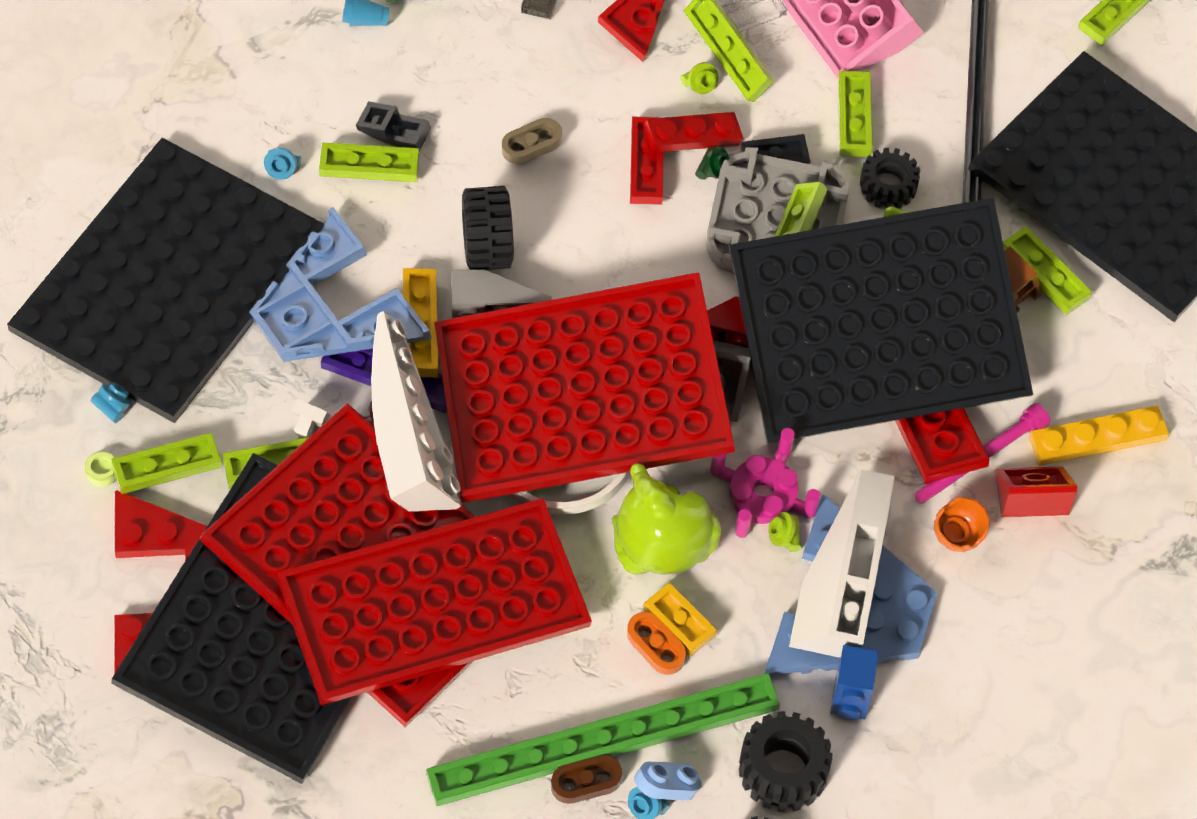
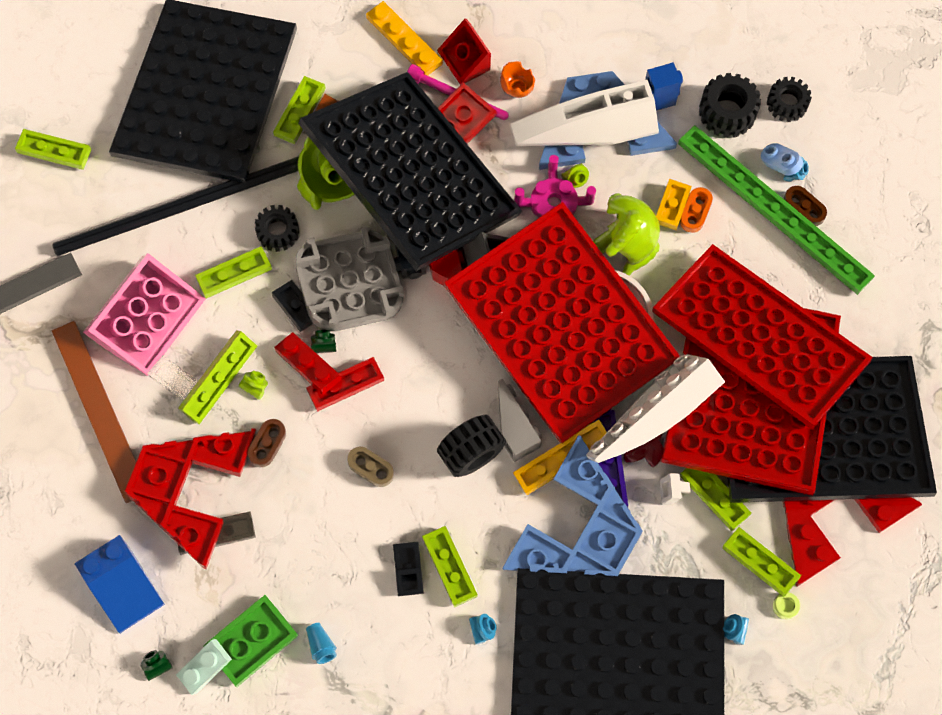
camera: 115 degrees left, 10 degrees up
(624, 59) = (266, 443): none -> reddish brown plate
(802, 208) = (357, 258): lime plate -> none

